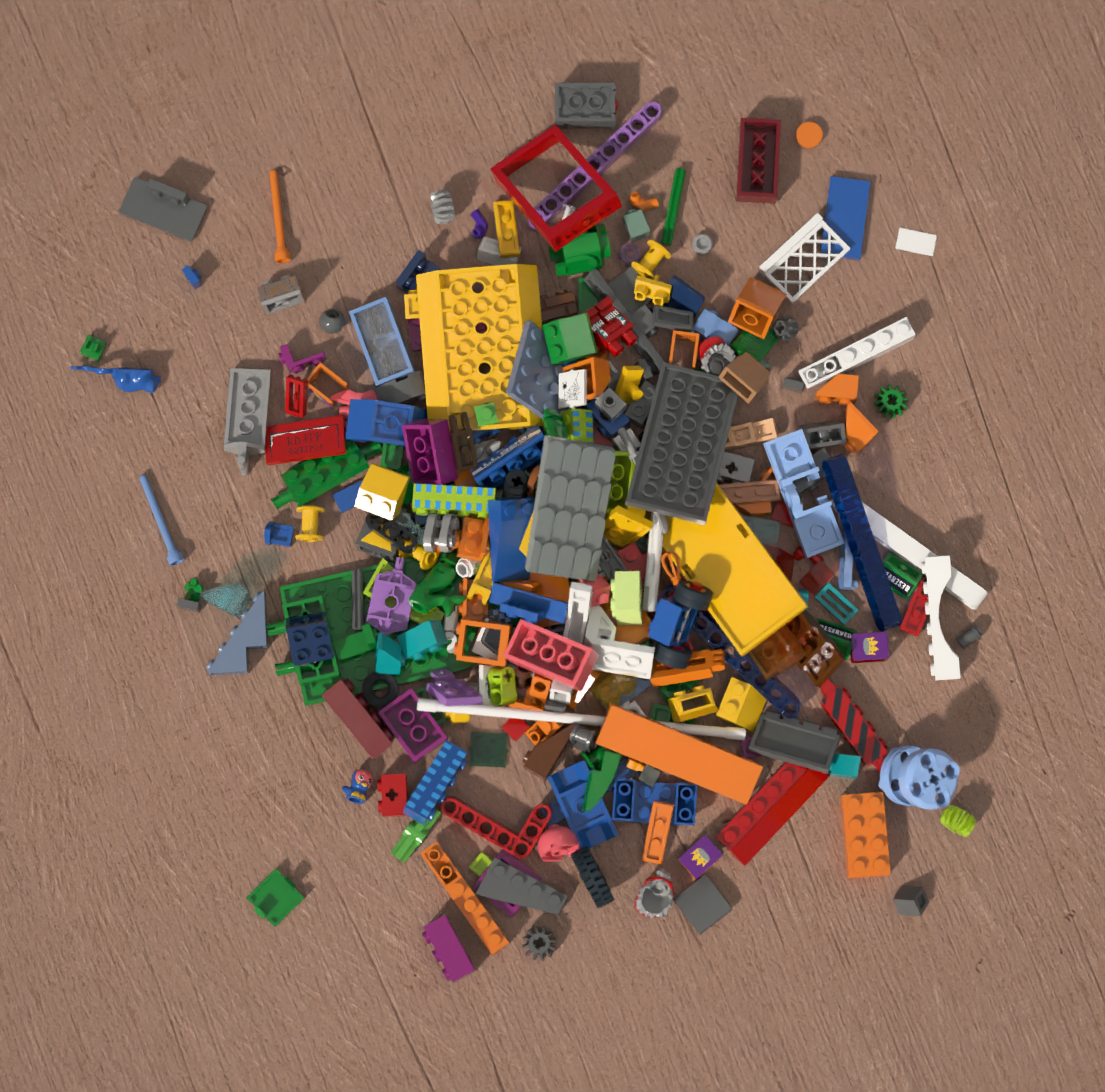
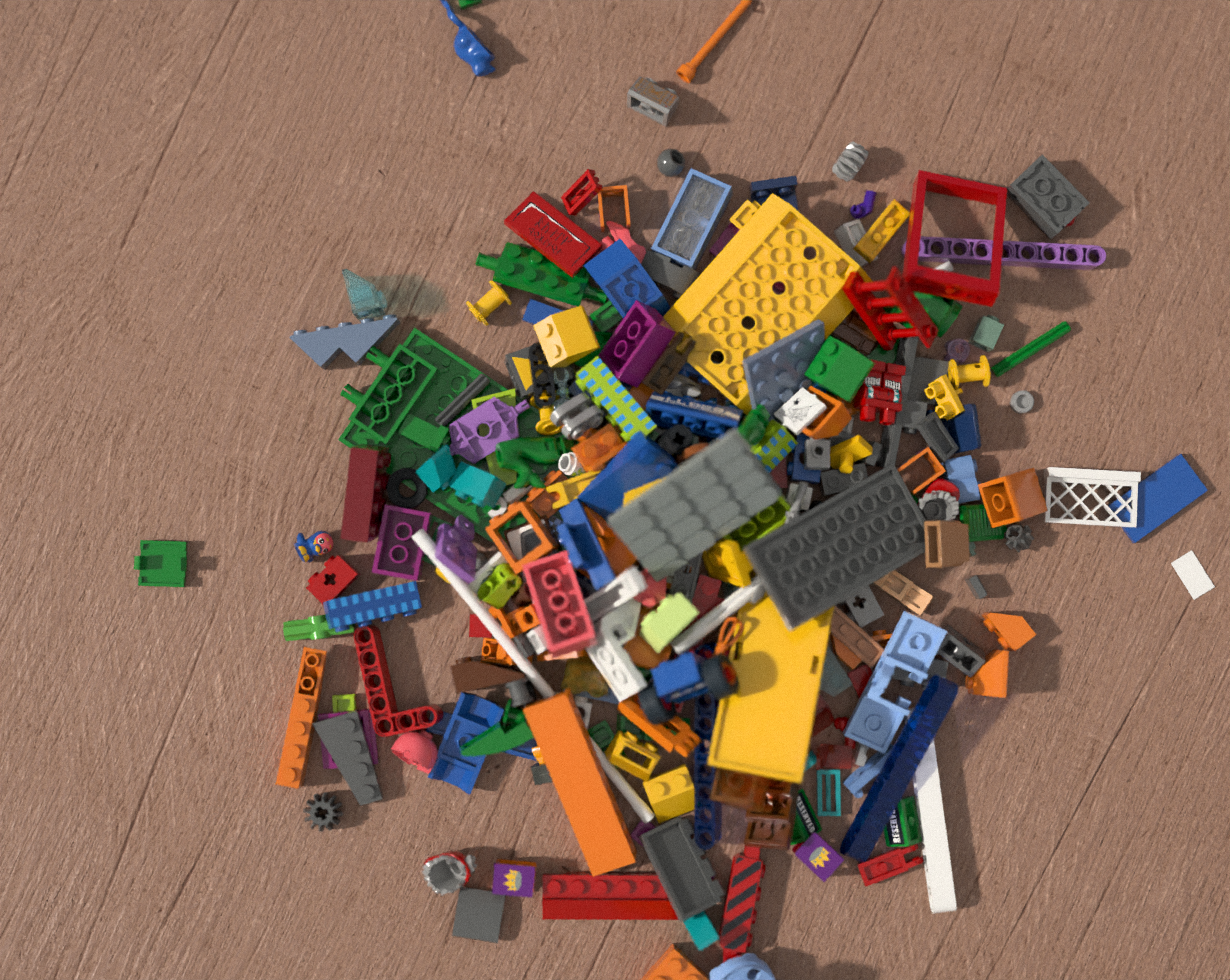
camera: 40 degrees right, 5 degrees up
(174, 556) = (361, 219): medium blue piece -> none
(189, 605) = (331, 269): dark grey tile -> none
(192, 276) = (600, 17): blue plate -> none
(193, 590) = (348, 260): green plant -> none
(247, 414) = (529, 168): light grey hinge -> none
(278, 534) = (457, 286): blue tile -> none
(299, 366) = (606, 156): magenta bracket -> none
(309, 638) = (391, 391): dark blue bracket -> none
(448, 949) = (247, 744): magenta brick -> none
(486, 414) = (710, 360): bright green plate -> none
(488, 749) = (442, 621): clear green piece -> none
(562, 285) = (878, 320): none -> red fence
(592, 877) = (413, 807): black wheel -> none
(635, 800) = (528, 804): blue slope -> none
(640, 203) = (1007, 318): orange arm -> none
(657, 832) = (503, 823): orange tile -> none
(758, 160) = (1137, 382): dark red brick -> none
(809, 135) = (1198, 403): orange piece -> none
(831, 560) = (860, 758): none -> white tile
(858, 353) = (1054, 616): white slope -> none
(884, 397) = (1040, 672): green gear -> none
(946, 661) = (931, 859): white arch -> none
(969, 636) = (905, 928): dark grey pin -> none

